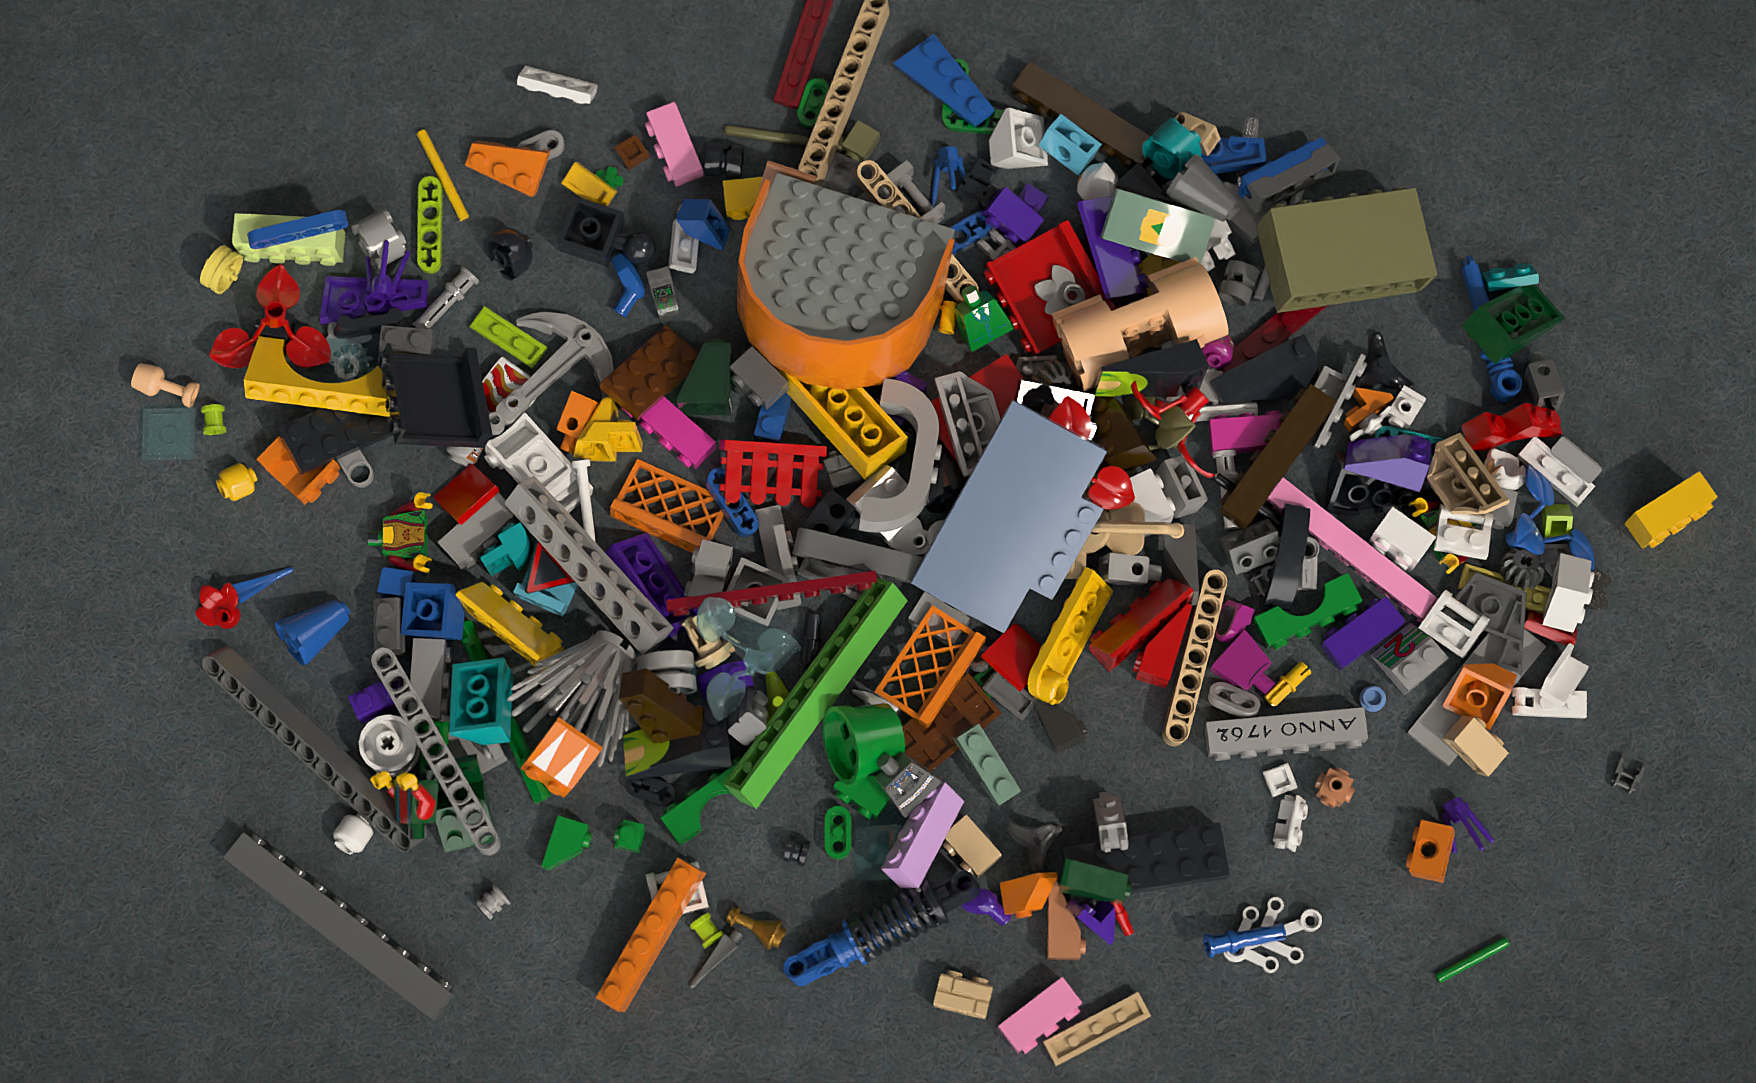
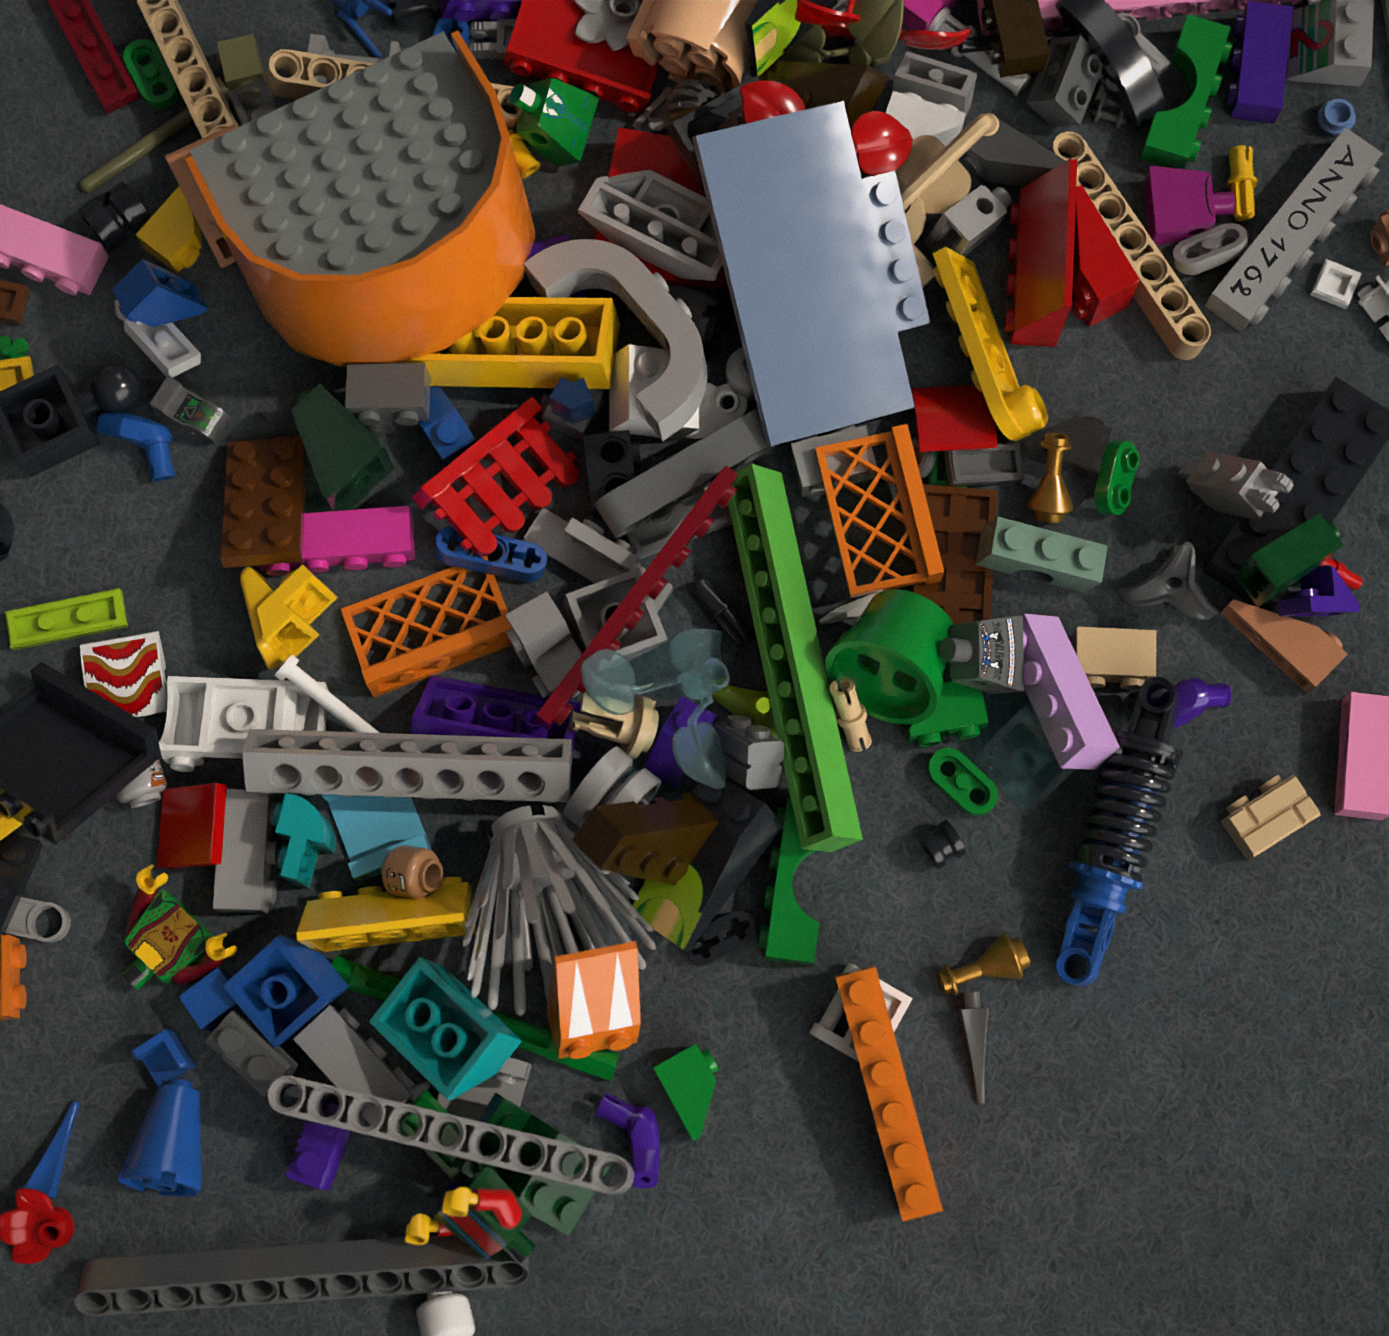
camera: 45 degrees left, 0 degrees up
(350, 588) = (165, 1057): none -> blue panel
(377, 737) = (364, 1189): white wheel -> none
(492, 901) = (676, 1234): light grey bush -> none
(523, 841) = (642, 1133): none -> dark purple arm
(540, 615) = (411, 872): none -> medium nougat head
(545, 571) = (366, 820): piece -> none
(565, 358) = (153, 569): light grey piece -> none
(576, 412) = (226, 617): orange torso -> none
(629, 836) = (751, 1010): green brick -> none
(706, 930) = (936, 1025): lime bush -> none
(816, 747) = (850, 714): none -> tan pin
(841, 468) = (572, 401): none -> dark blue piece
(1022, 742) = (1050, 498): none -> pearl gold piece
(1026, 893) = (1224, 645): orange slope -> none
(1065, 764) = (1116, 477): none -> green plate
(1232, 620) = (1126, 169): magenta rock -> none

